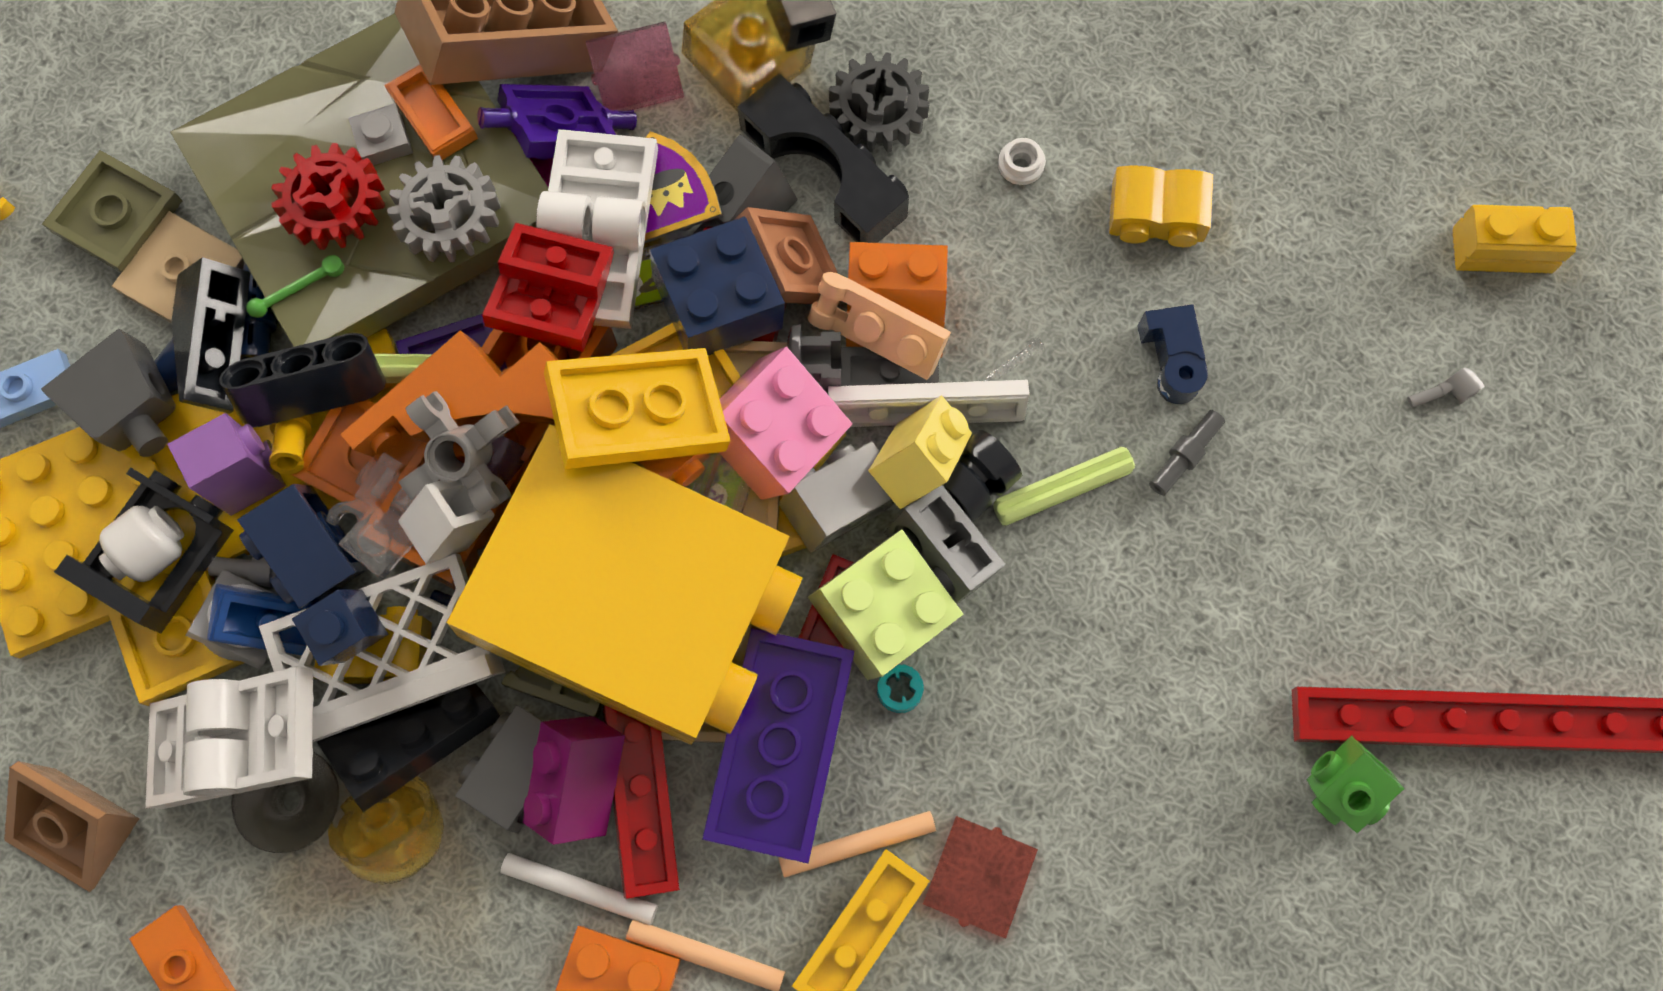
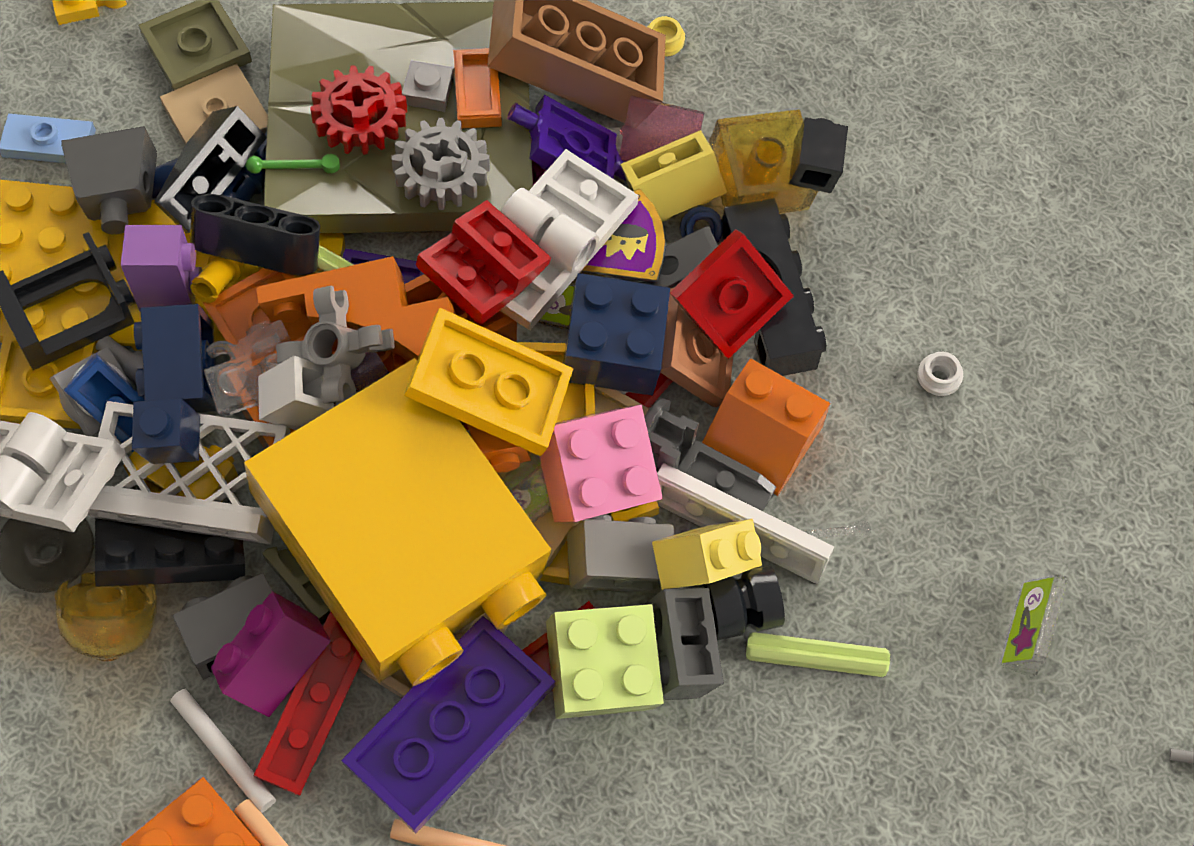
camera: 25 degrees right, 10 degrees down
(140, 543) = (60, 293): white head -> none
(674, 97) = (677, 175): none -> light yellow brick
(713, 126) = (701, 213): none -> dark blue plate
(800, 189) = (731, 294): none -> red plate
(879, 325) = (735, 436): light nougat plate -> none
(901, 108) = (852, 279): dark grey gear -> none
(916, 686) = (593, 743): teal bush -> none
(1161, 205) = (1039, 470): yellow brick -> none
(1178, 351) = (984, 597): dark blue leg -> none
(1187, 452) = (941, 685): dark grey bar -> none
(1235, 351) = (1033, 624): none -> slope

